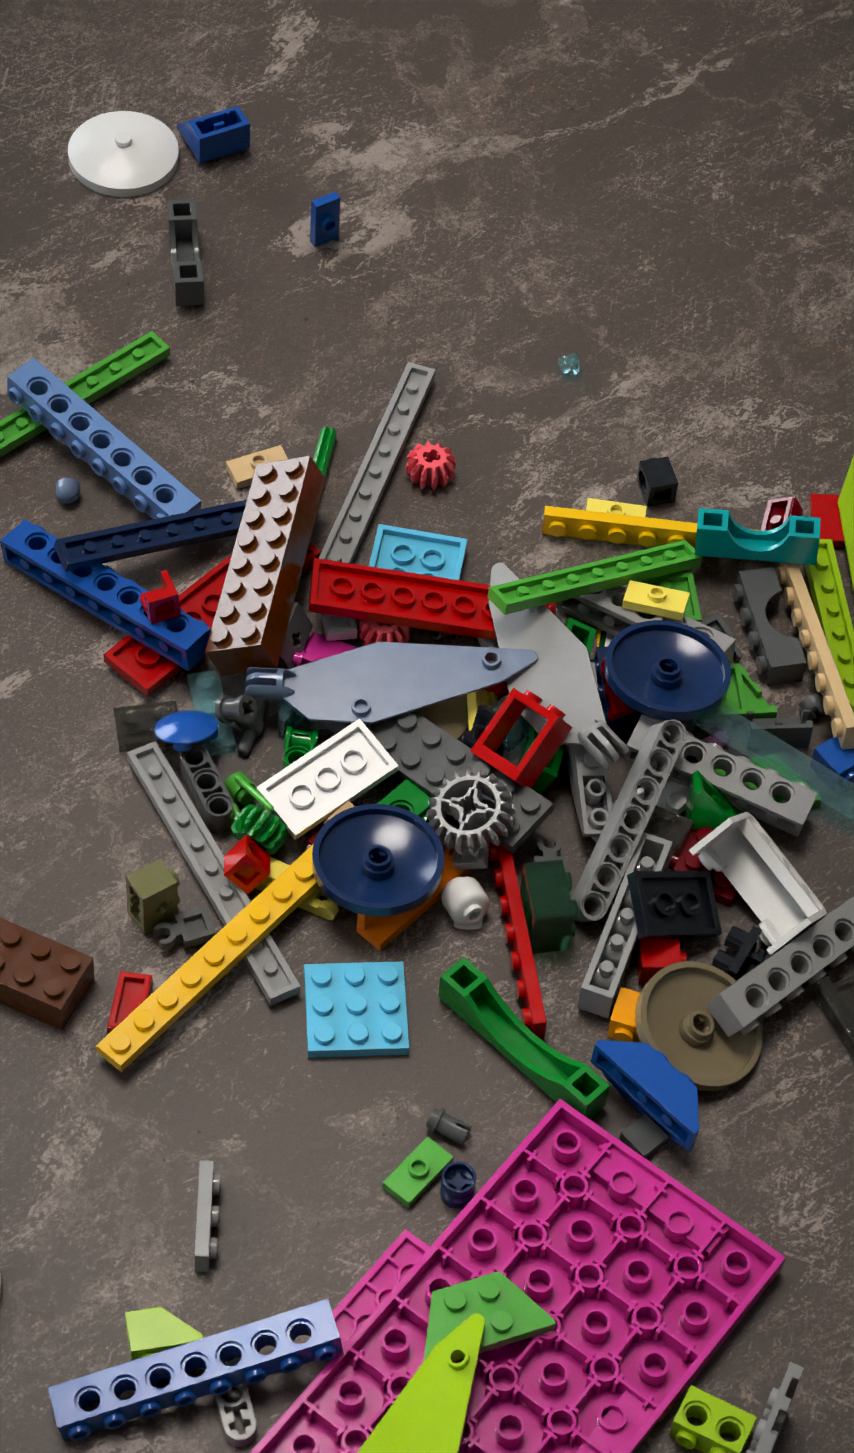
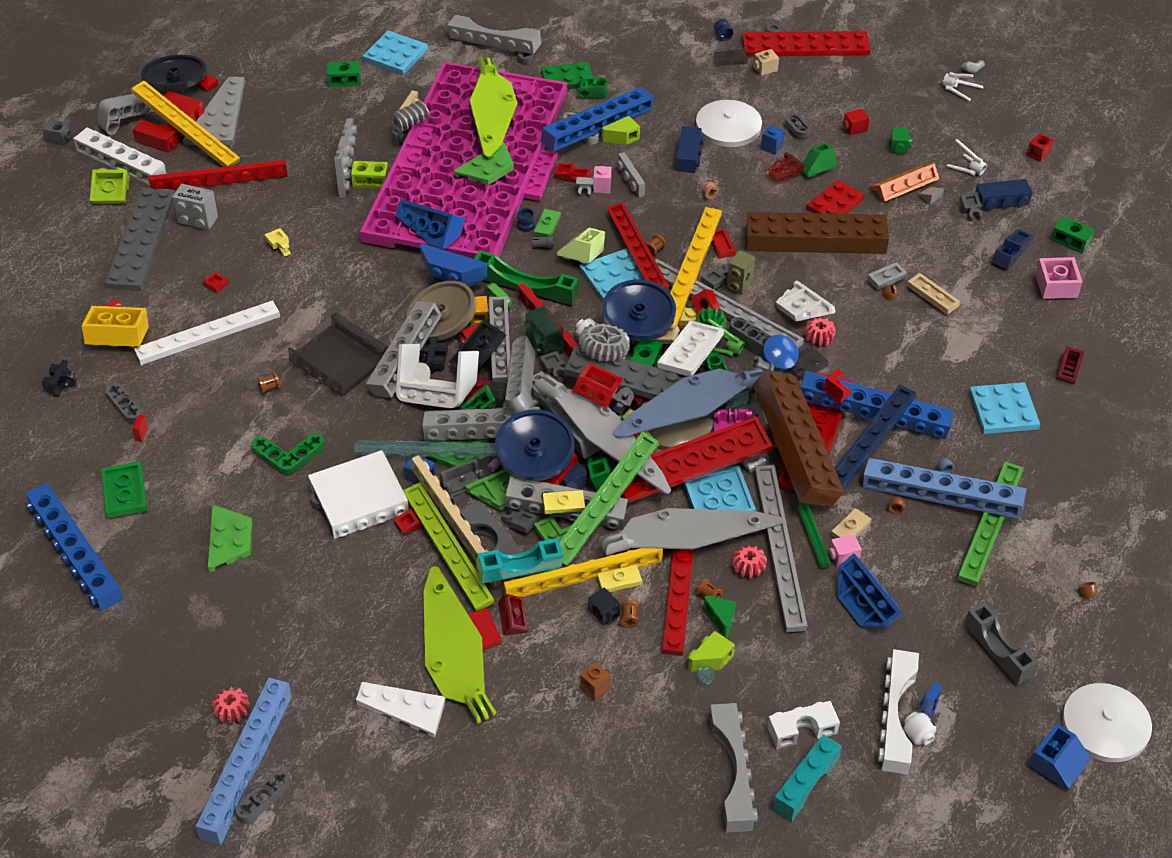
camera: 160 degrees right, 5 degrees down
(15, 286) = (1088, 589): none -> dark orange hinge
(56, 1235) = (689, 149): none -> dark blue brick
(79, 1120) = (710, 190): none -> nougat bush
(85, 812) = (803, 303): none -> white wing
(91, 758) = (819, 331): none -> coral gear
(177, 465) = (896, 505): none -> dark orange hinge
(254, 1035) = (655, 245): none -> dark orange bush
(267, 1220) = (602, 179): none -> bright pink brick
(294, 431) = (843, 548): none -> bright pink brick
(294, 1030) = (636, 244): none -> red plate
(303, 1228) = (584, 183): none -> light grey tile
(305, 356) = (865, 595): none -> blue wedge
(306, 1276) = (569, 172): none -> red slope
(329, 272) = (897, 747): none -> white arch
(353, 214) = (919, 728): none -> white head
(391, 1068) = (584, 246): none -> yellowish green slope
(488, 222) = (797, 788): none -> teal arch
(494, 525) = (685, 529): none -> light grey wing
(504, 274) = (818, 717): none -> white arch
(506, 418) = (721, 613): none -> green slope
(506, 451) = (707, 589): none -> dark orange bush
(536, 483) = (678, 602): none -> red plate
(549, 377) = (713, 652): none -> lime slope
(582, 1031) = (494, 290): none -> bright green beam
(612, 221) = (738, 808): none -> light grey arch
(627, 462) = (630, 614): none -> dark orange bush
(638, 1184) = (433, 225): none -> blue wedge
(714, 396) = (595, 681): none -> dark orange brick

